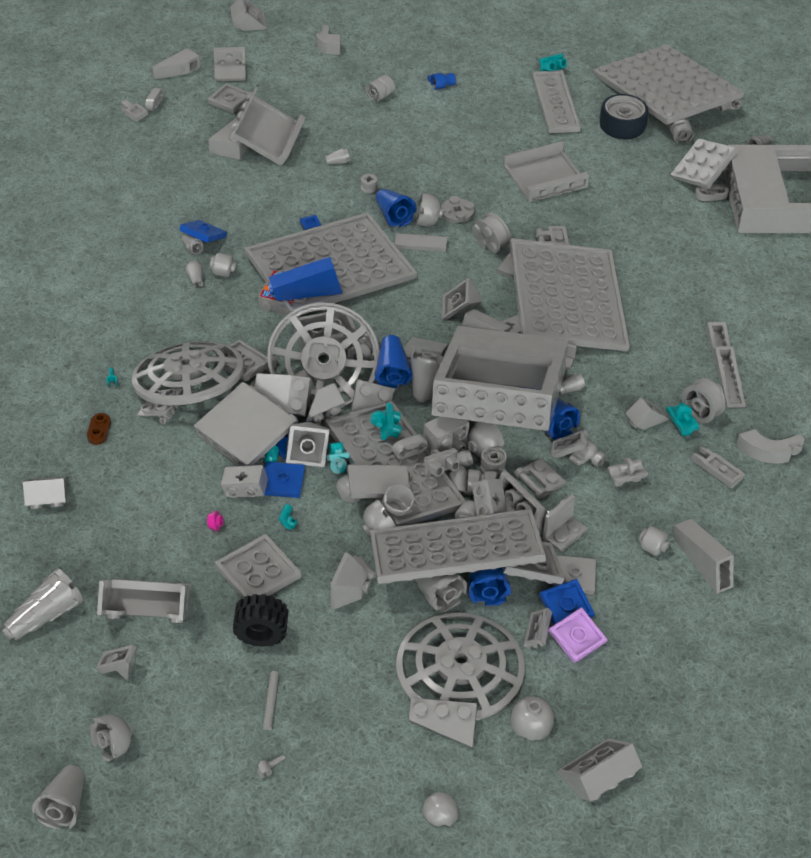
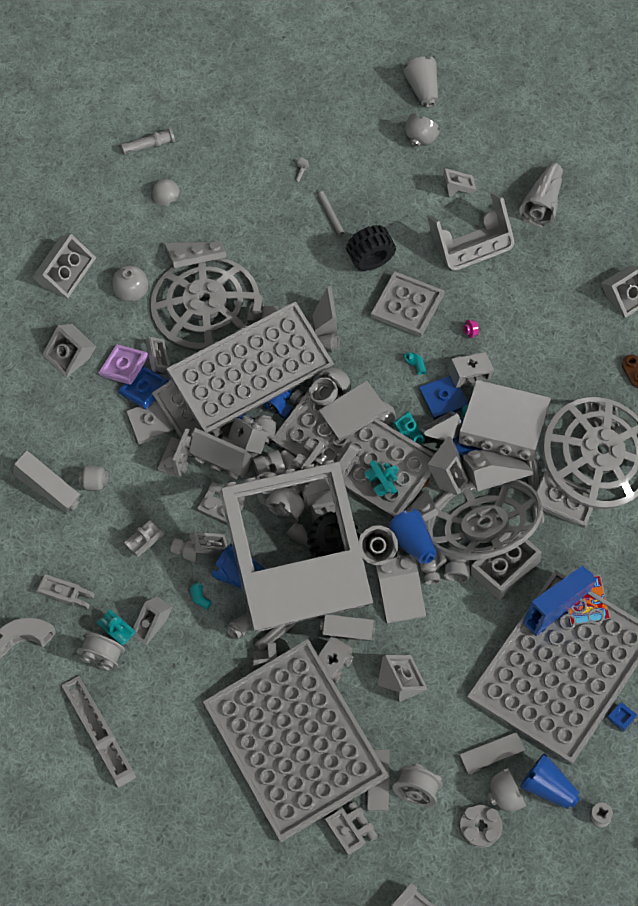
camera: 160 degrees right, 15 degrees up
(409, 613) = (258, 310): none -> light grey brick
(597, 417) = (197, 596): none -> teal arm
(628, 673) = (68, 349): none -> light grey slope

